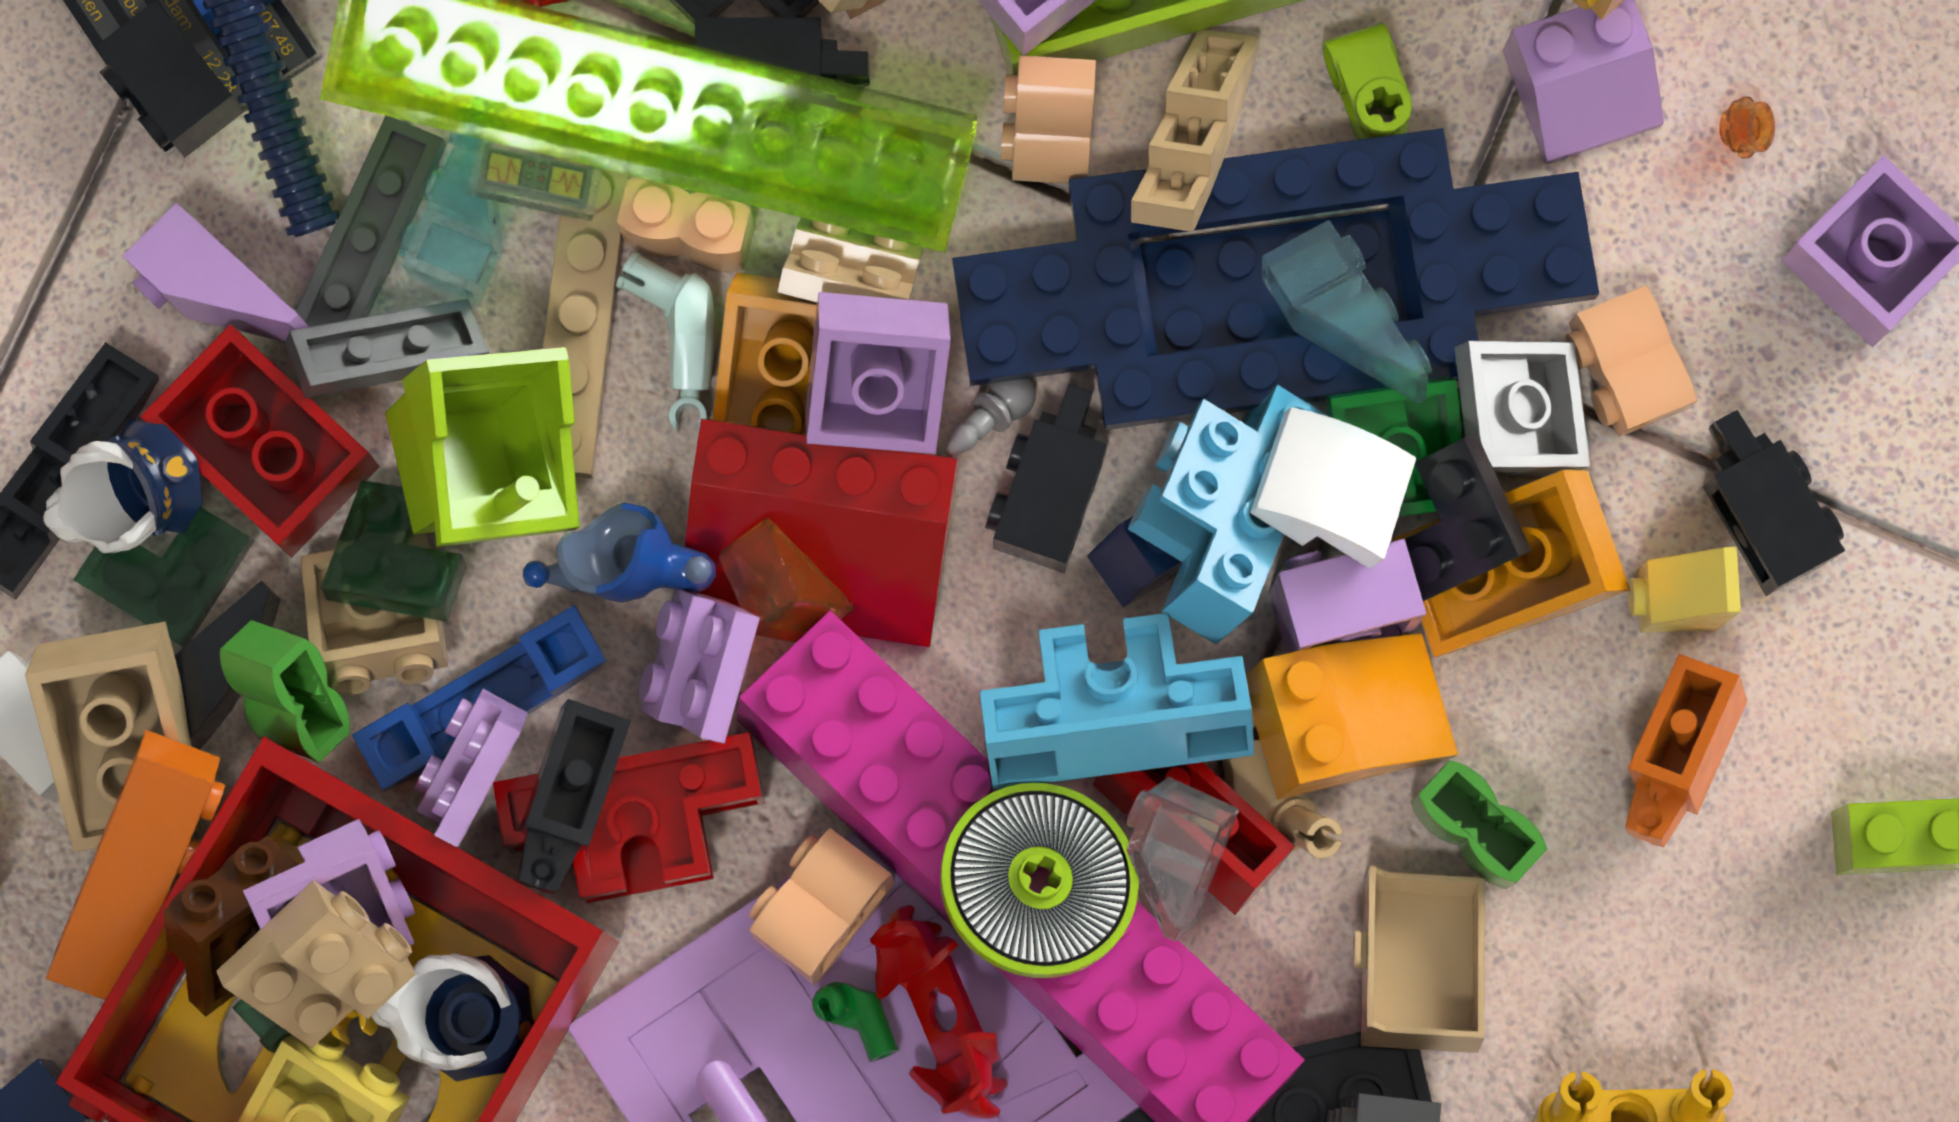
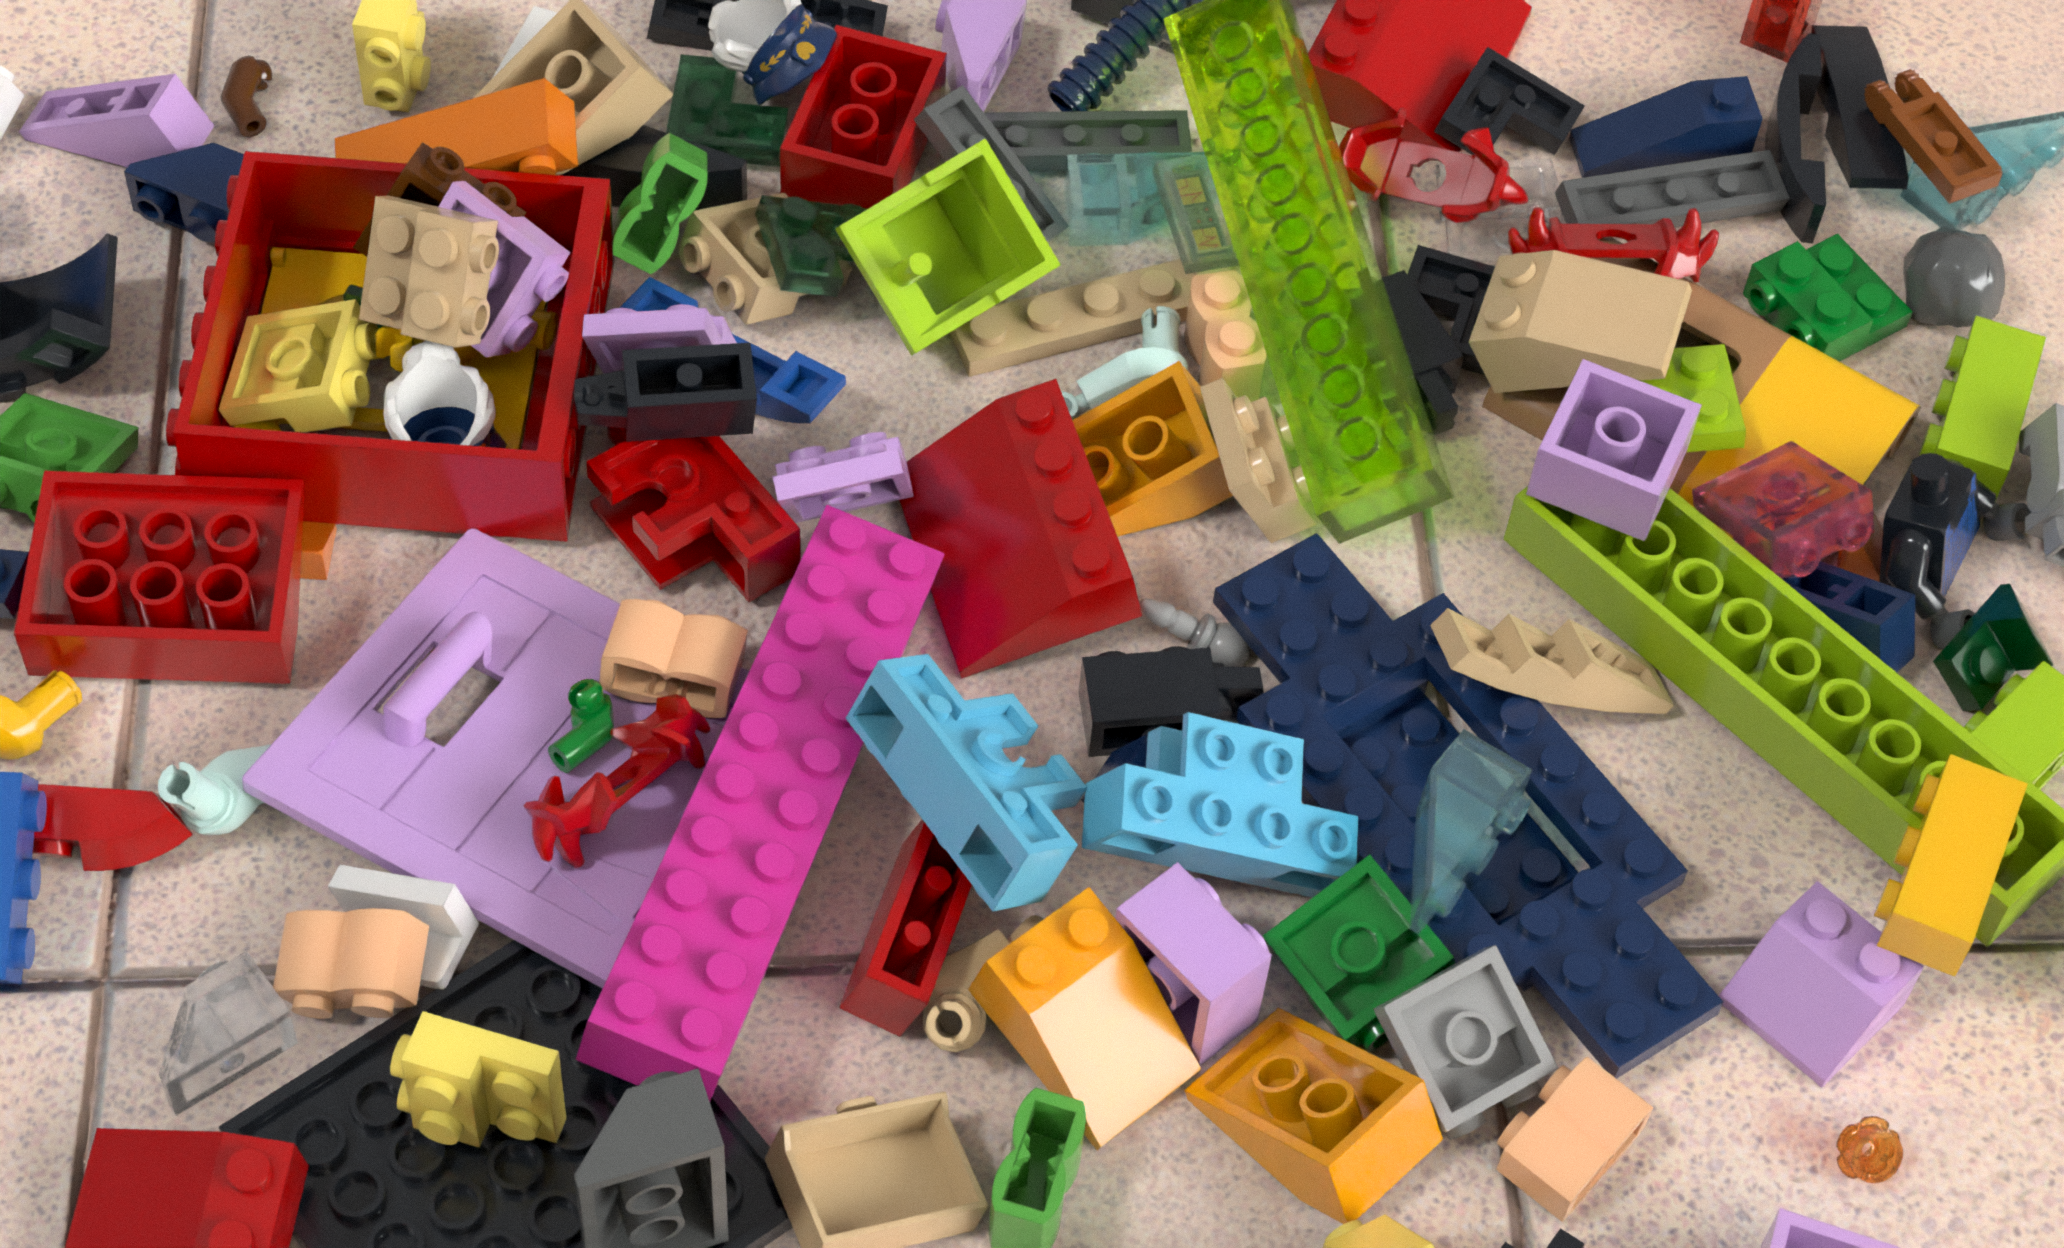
camera: 60 degrees right, 25 degrees down
(623, 558) = (904, 394): piece -> none
(779, 583) = (947, 513): clear orange slope -> none
(877, 373) = (1172, 479): lavender brick -> none
(991, 895) = (736, 797): piece -> none
(1052, 119) = (1489, 553): light nougat brick -> none
(1177, 850) = (863, 888): clear slope -> none
(1333, 485) = (1286, 872): white slope -> none
(1369, 77) = (1696, 804): lime piece -> none
(1475, 517) = (1322, 1033): black plate -> none

